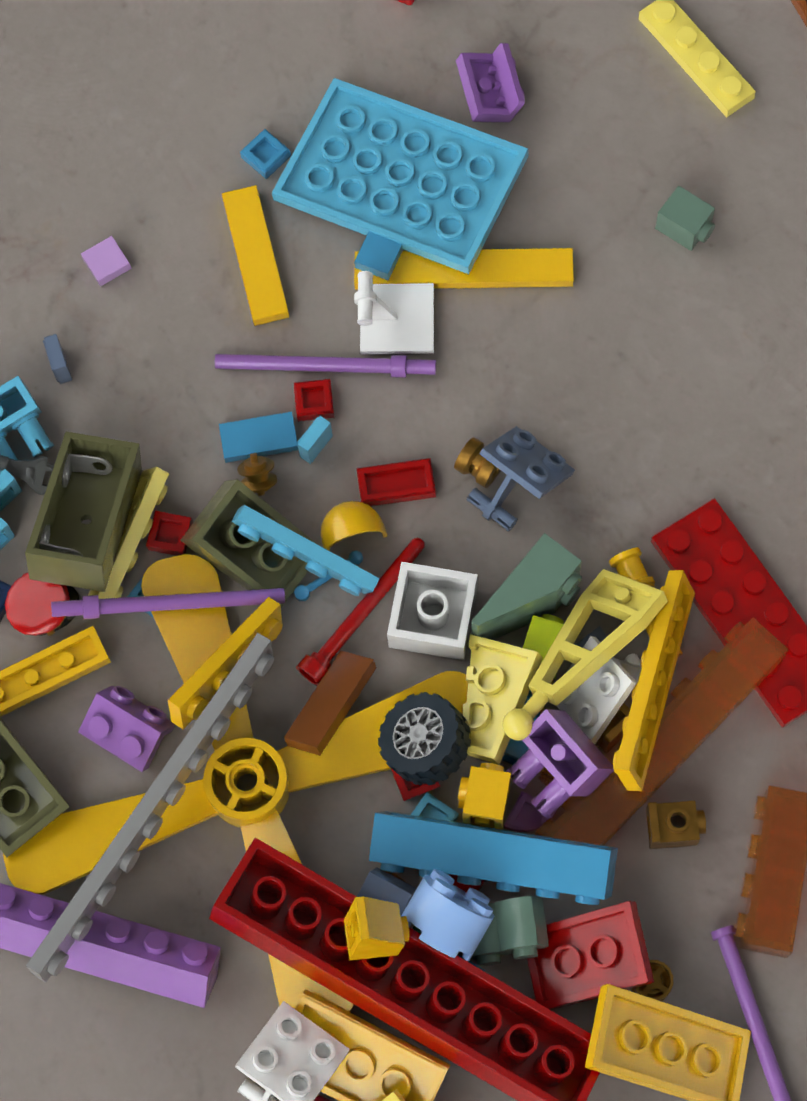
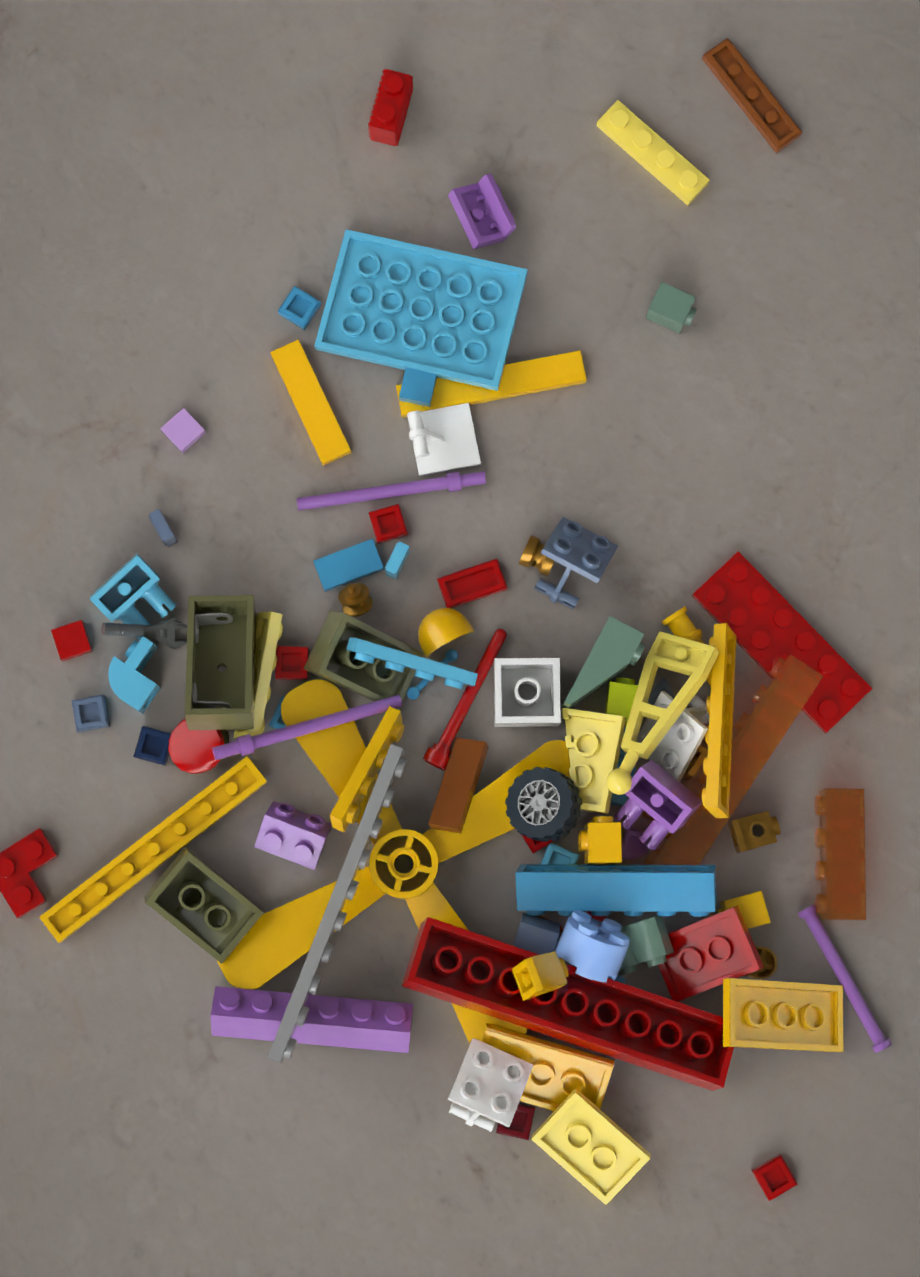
camera: 20 degrees left, 10 degrees up
(654, 915) = (751, 907): none -> yellow brick

